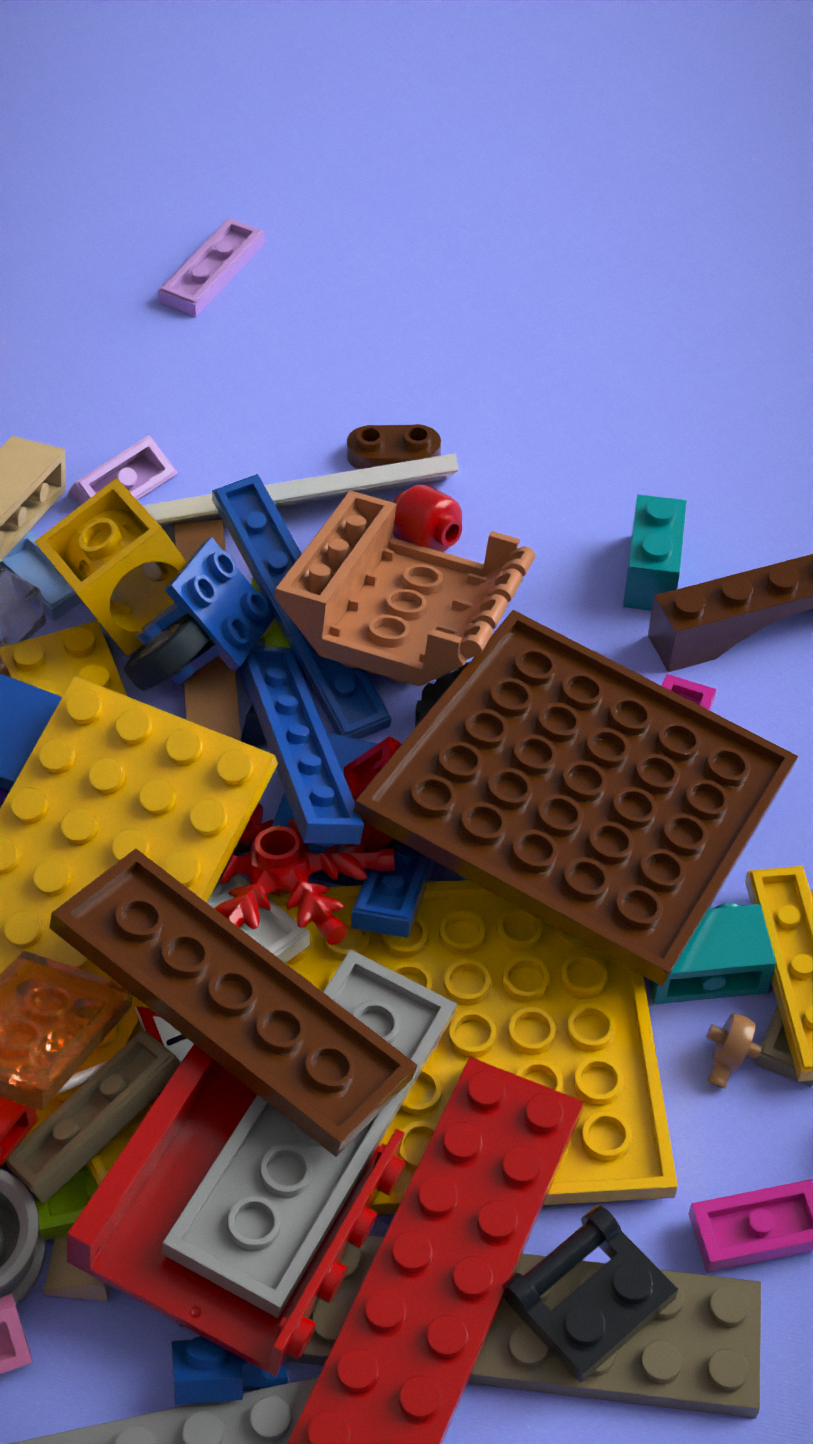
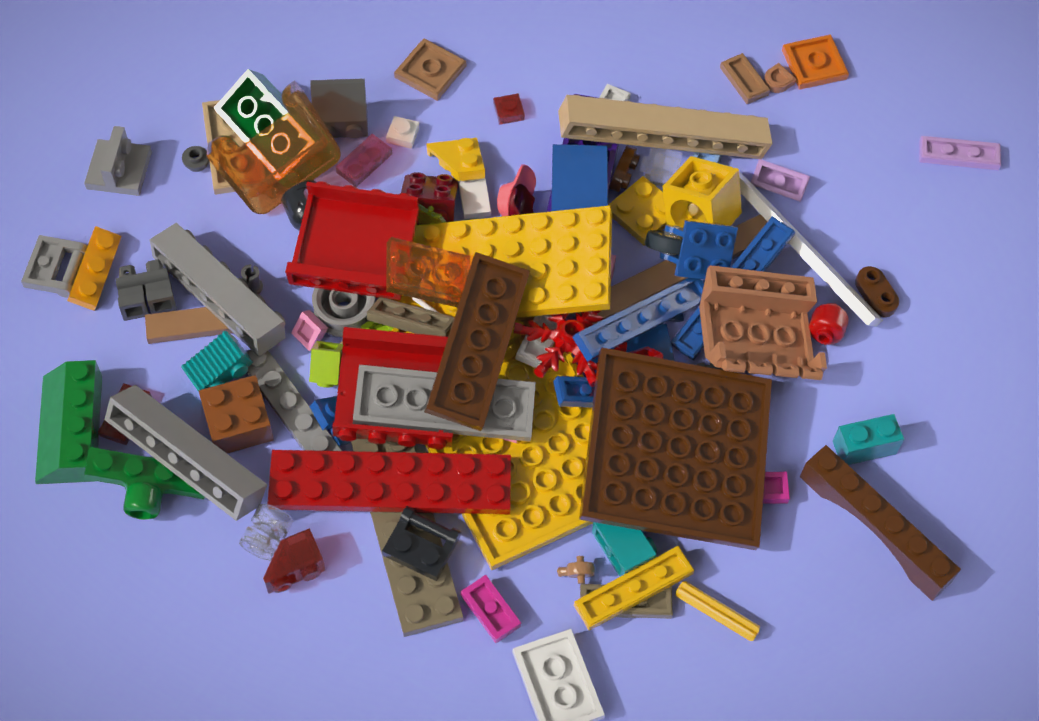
camera: 65 degrees right, 10 degrees up
(94, 1327) = (325, 363): none -> lime brick

